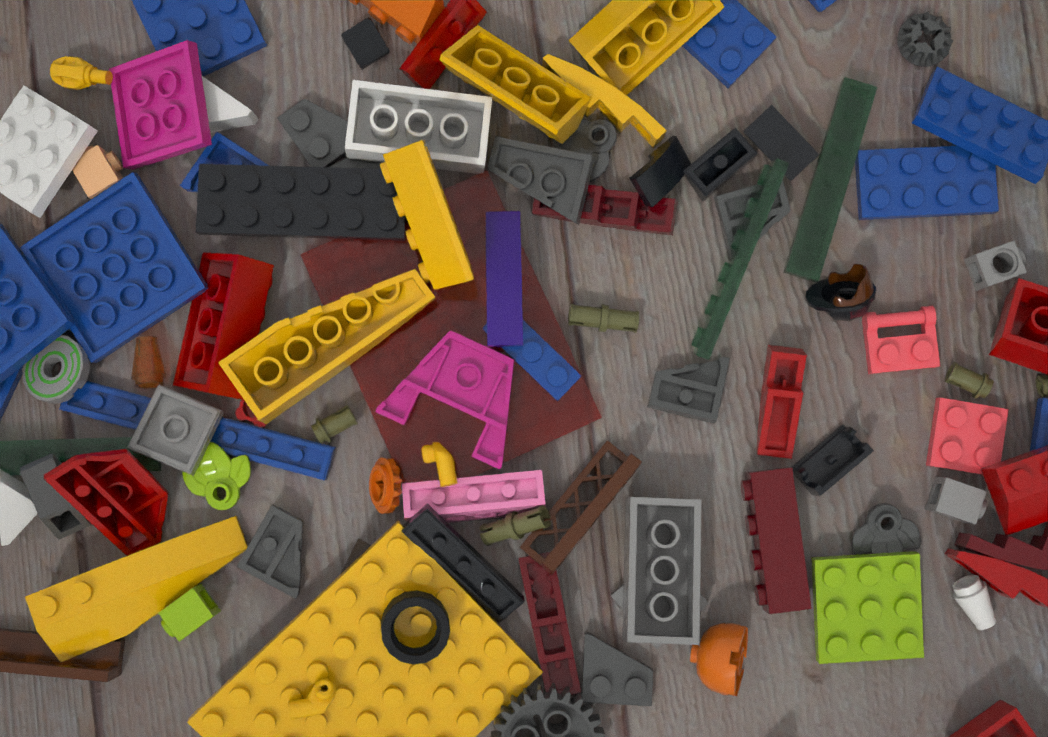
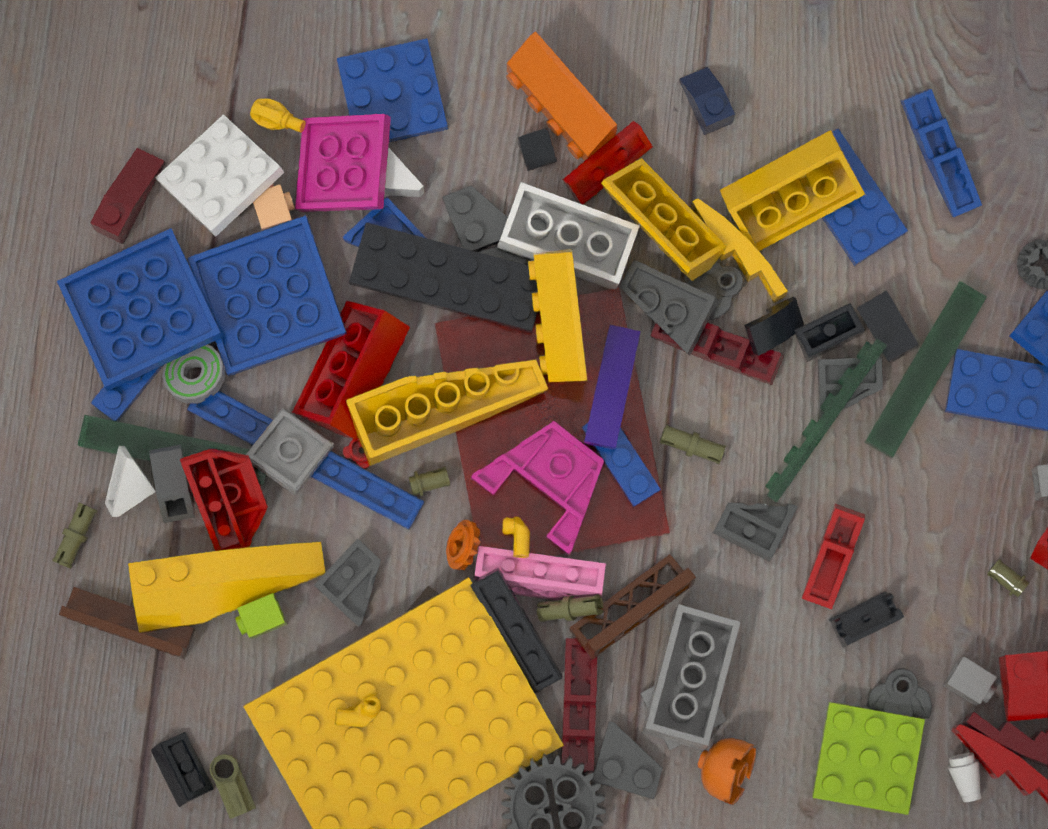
camera: 10 degrees right, 5 degrees down
(147, 363) = (275, 390): clear orange cone -> none
(219, 471) = (315, 497): lime plate -> none
(419, 654) = (478, 690): black tyre -> none
(777, 540) = (801, 677): dark red brick -> none
(843, 294) = (911, 474): black piece -> none
(901, 352) = (952, 538): coral plate -> none
(966, 435) = (994, 627): coral plate -> none

